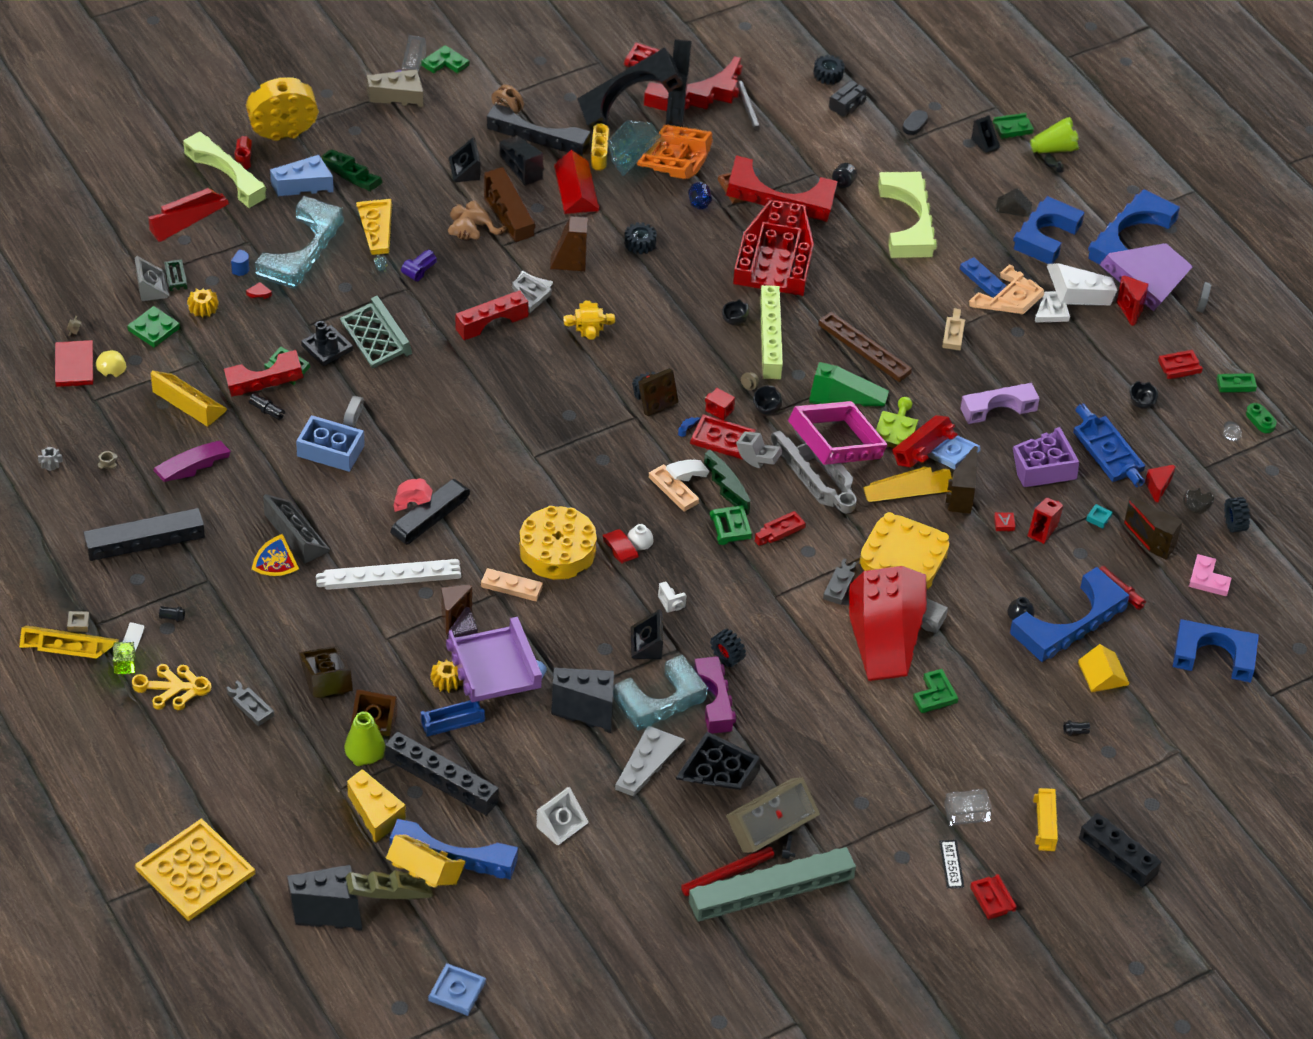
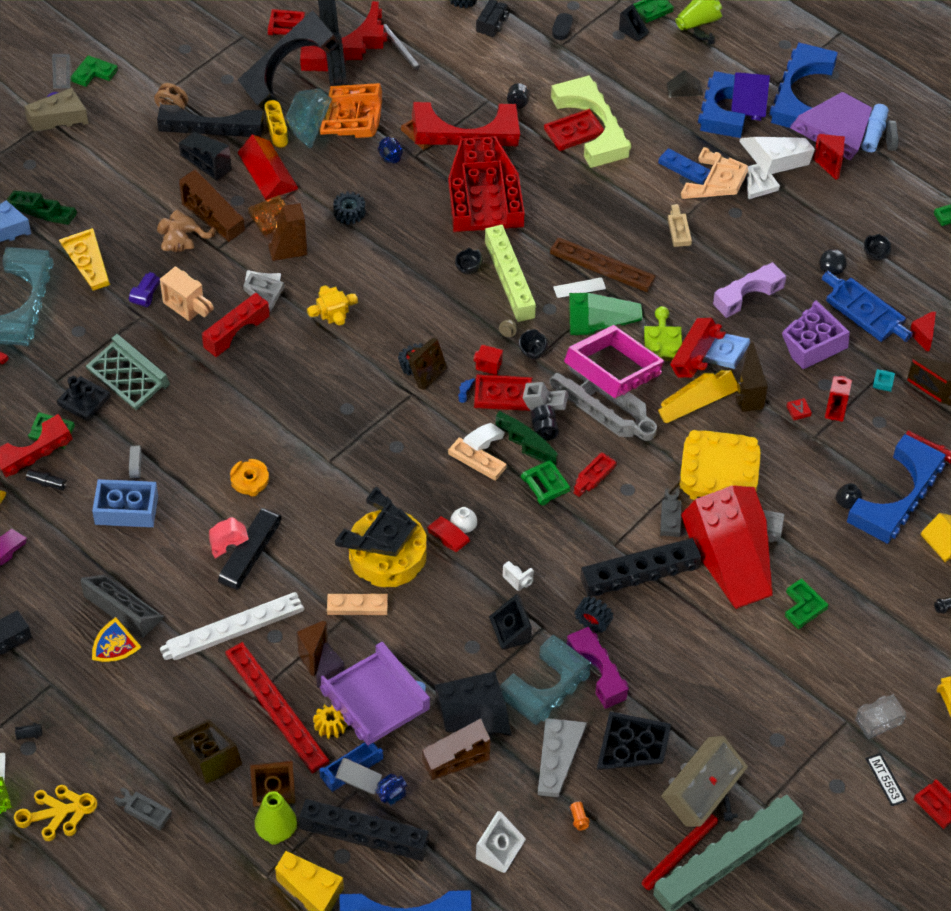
camera: 15 degrees left, 5 degrees up
(380, 263) = (106, 297): clear light blue plate -> none
(403, 652) = (277, 707): none -> red tile
(452, 276) = (184, 294): none -> light nougat brick
(454, 459) = (249, 486): none -> light orange plate
(454, 727) = (358, 776): none -> light grey tile
(465, 162) = (152, 171): black slope -> none
(480, 746) = (391, 789): none -> clear blue head
(553, 730) = (457, 751): none -> wedge
(556, 223) = (264, 214): none -> clear orange plate
(557, 526) = (387, 532): none -> black wing
(645, 820) = (580, 822): none -> orange pin
(750, 471) = (545, 422): none -> black wheel
(791, 620) = (630, 566): none -> black brick
(844, 363) = (579, 287): none -> white sticker
(887, 218) = (574, 129): none -> red tile
(1073, 226) = (750, 95): none -> dark purple brick
(1094, 398) = (833, 261): none -> black hair
(1180, 364) = (896, 207): red plate -> none
(1189, 286) = (875, 127): none -> light blue piece

